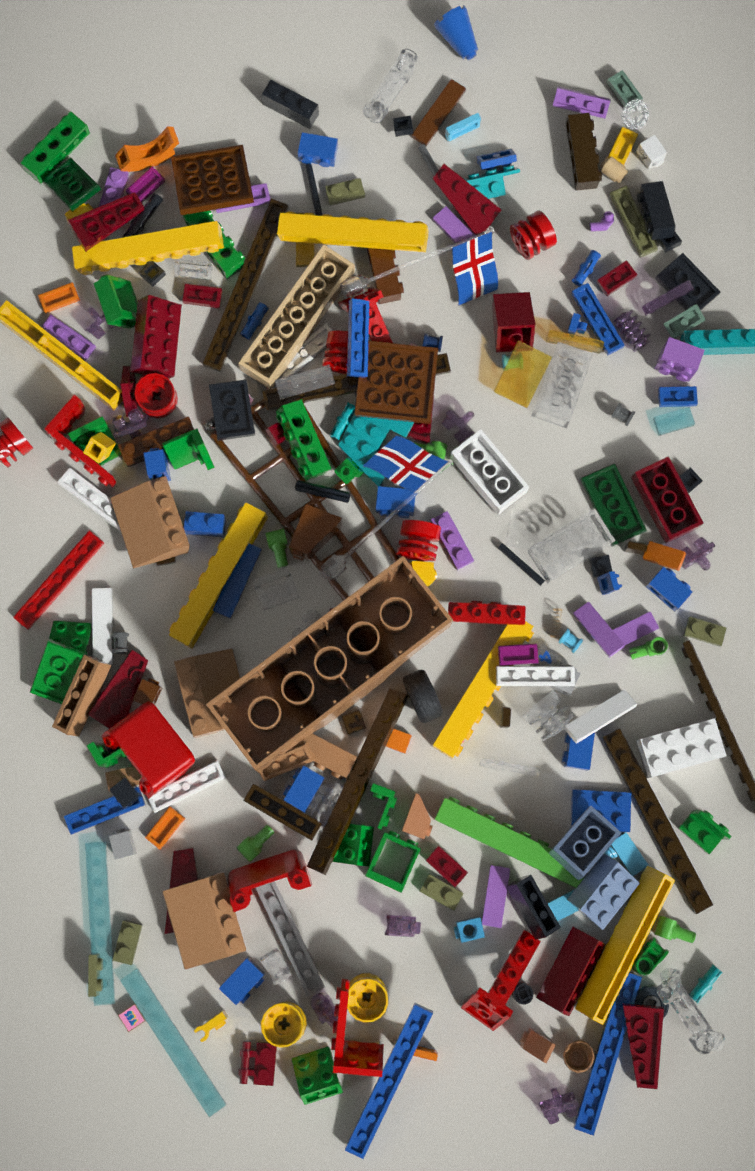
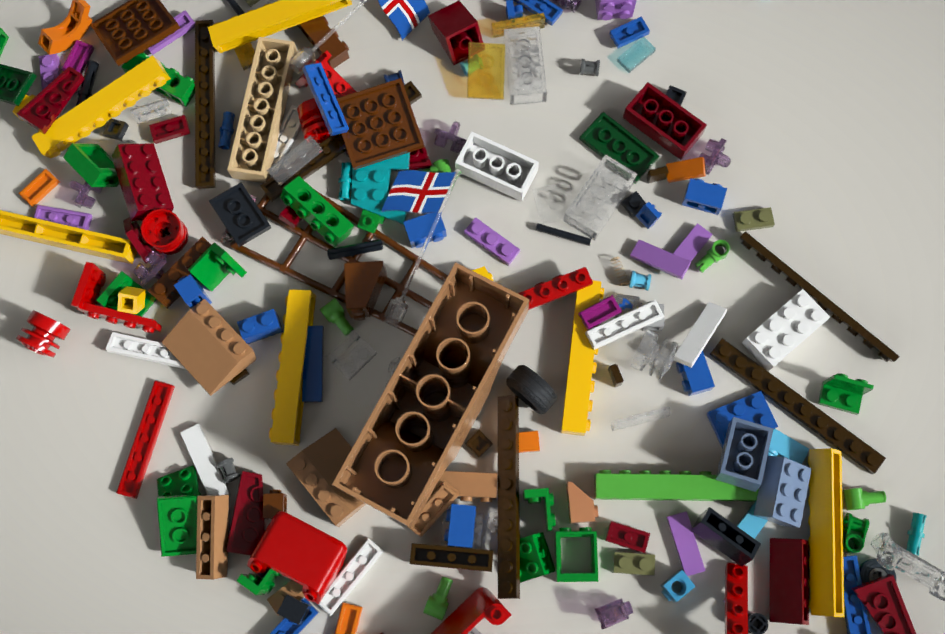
camera: 15 degrees left, 5 degrees down
(418, 544) = (462, 249): red wheel -> none

